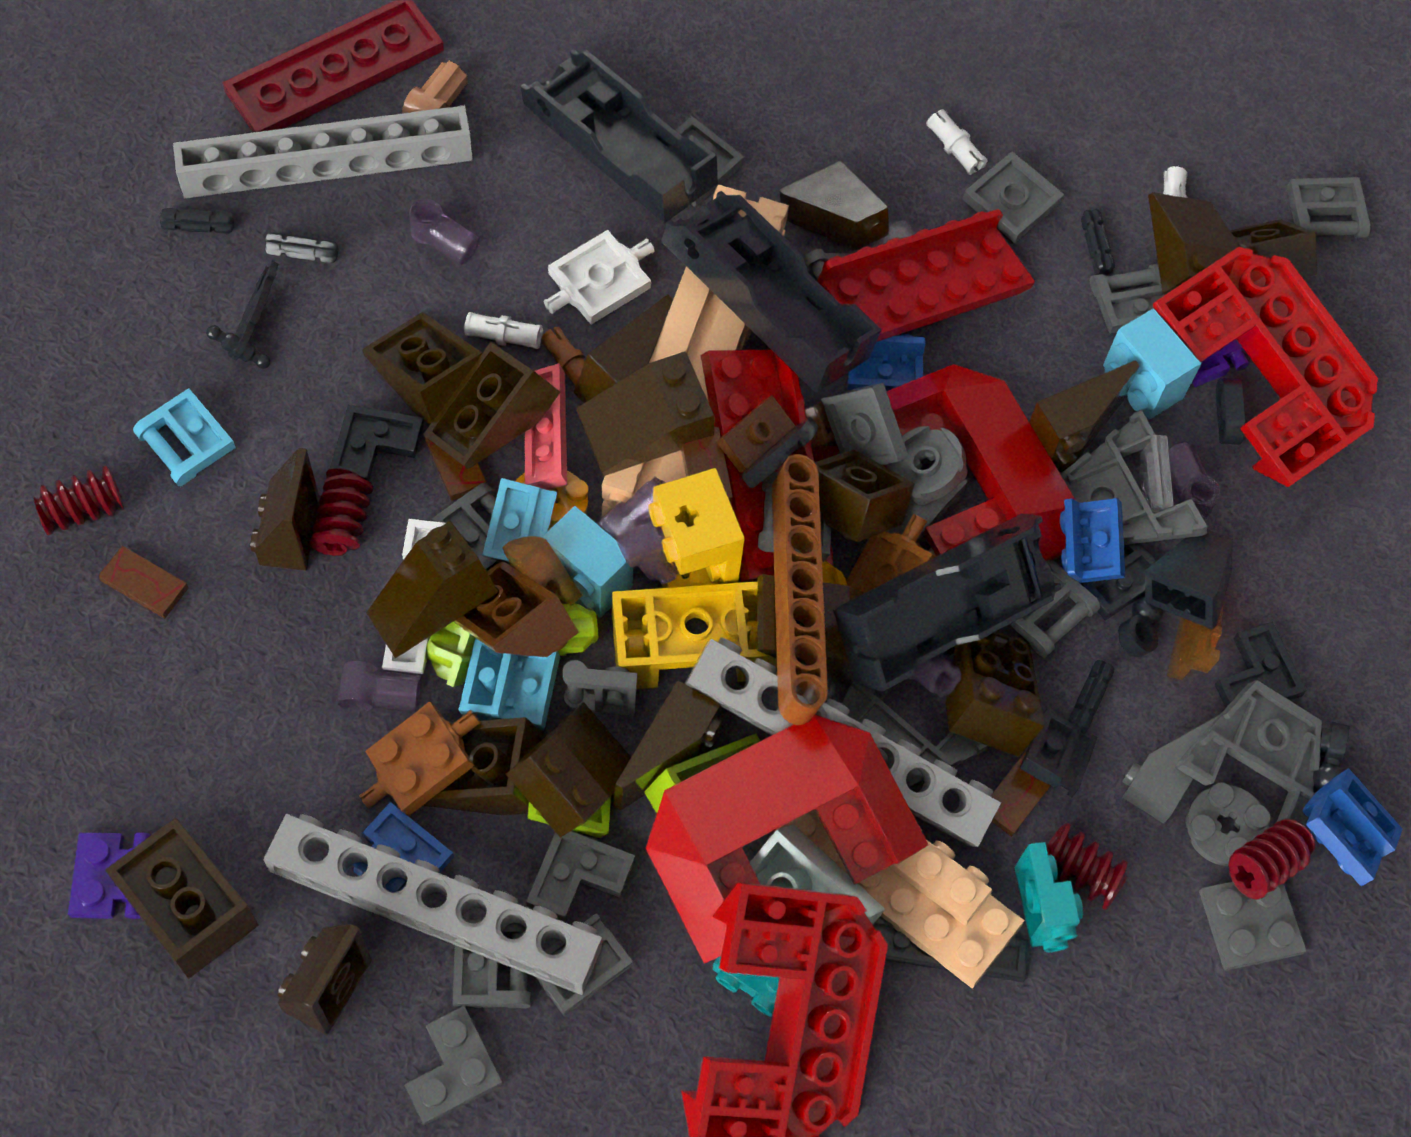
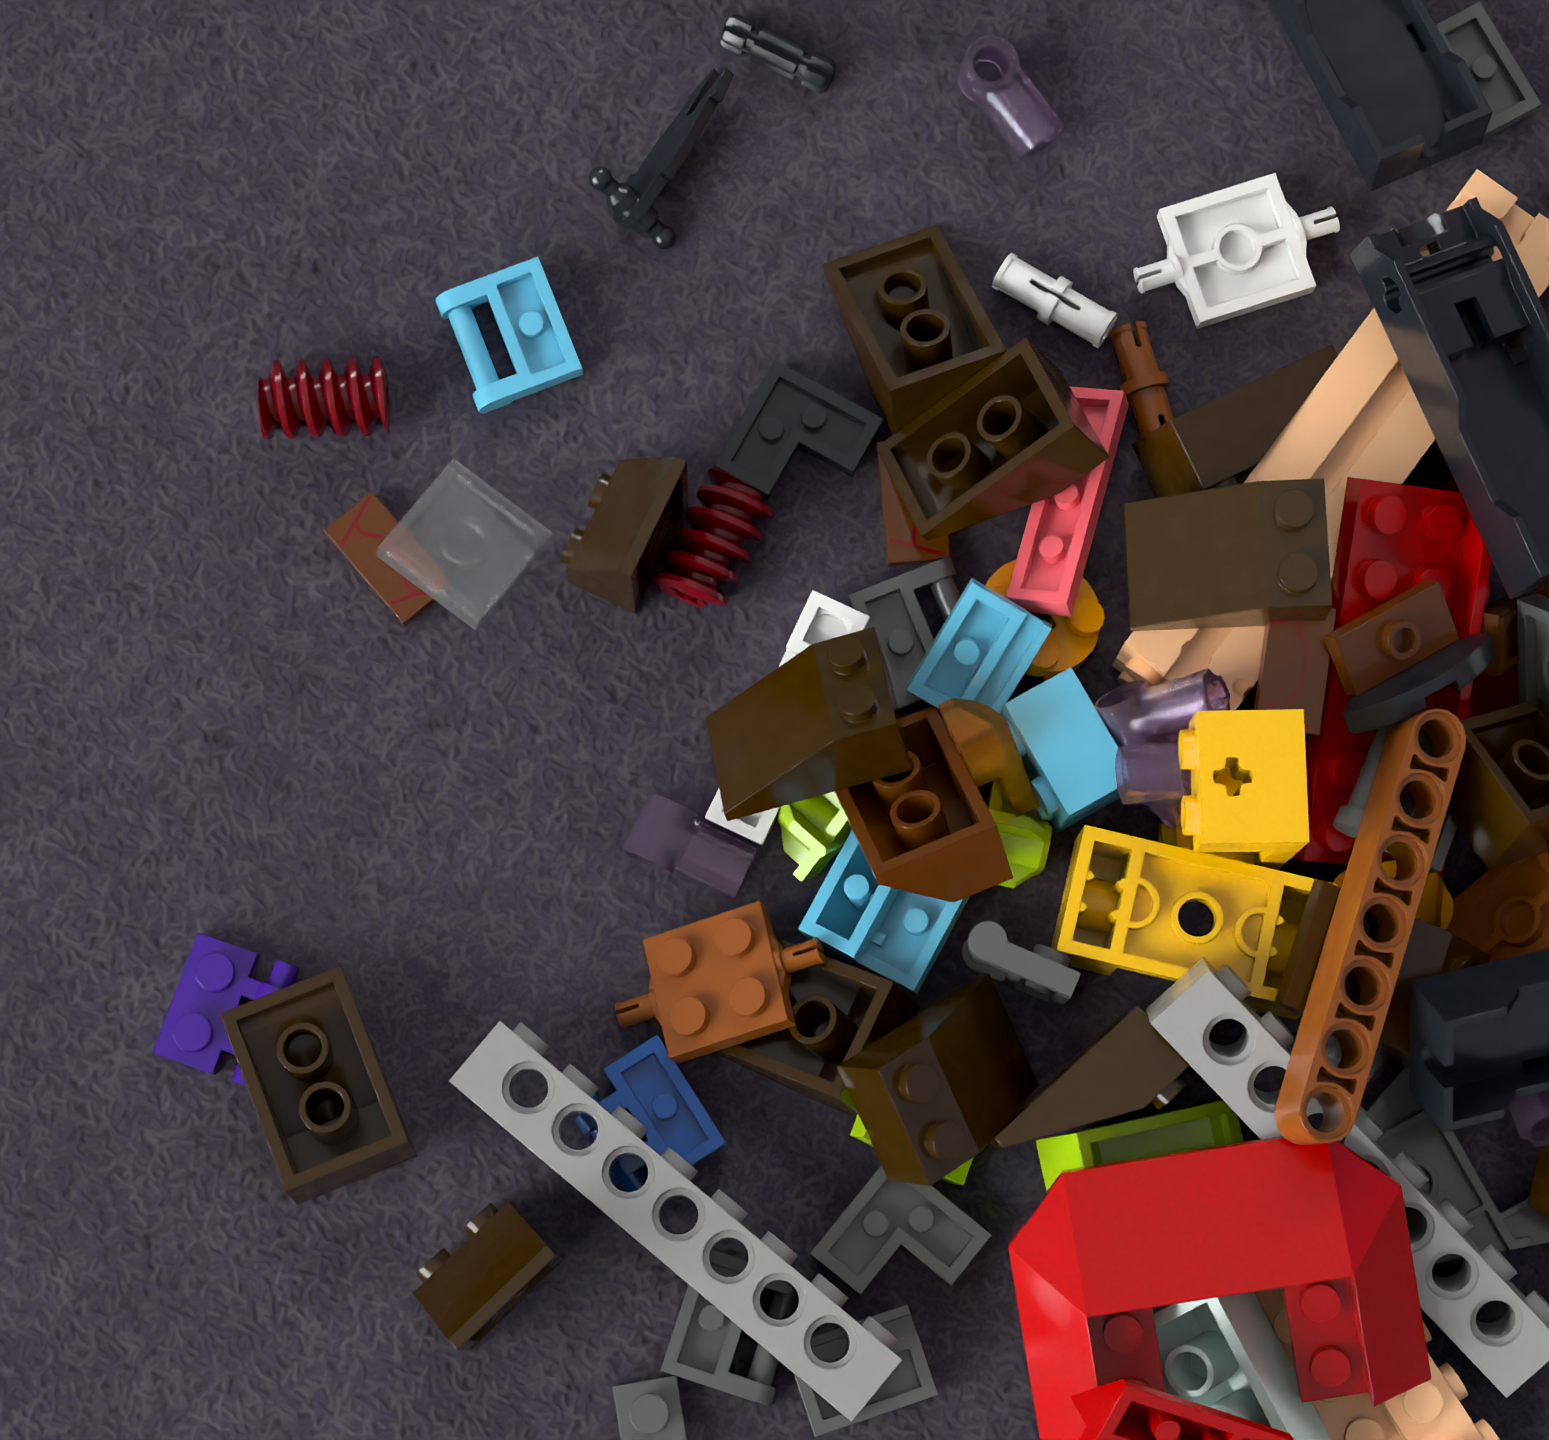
camera: 20 degrees right, 15 degrees up
(188, 558) = (464, 544): none -> clear tile

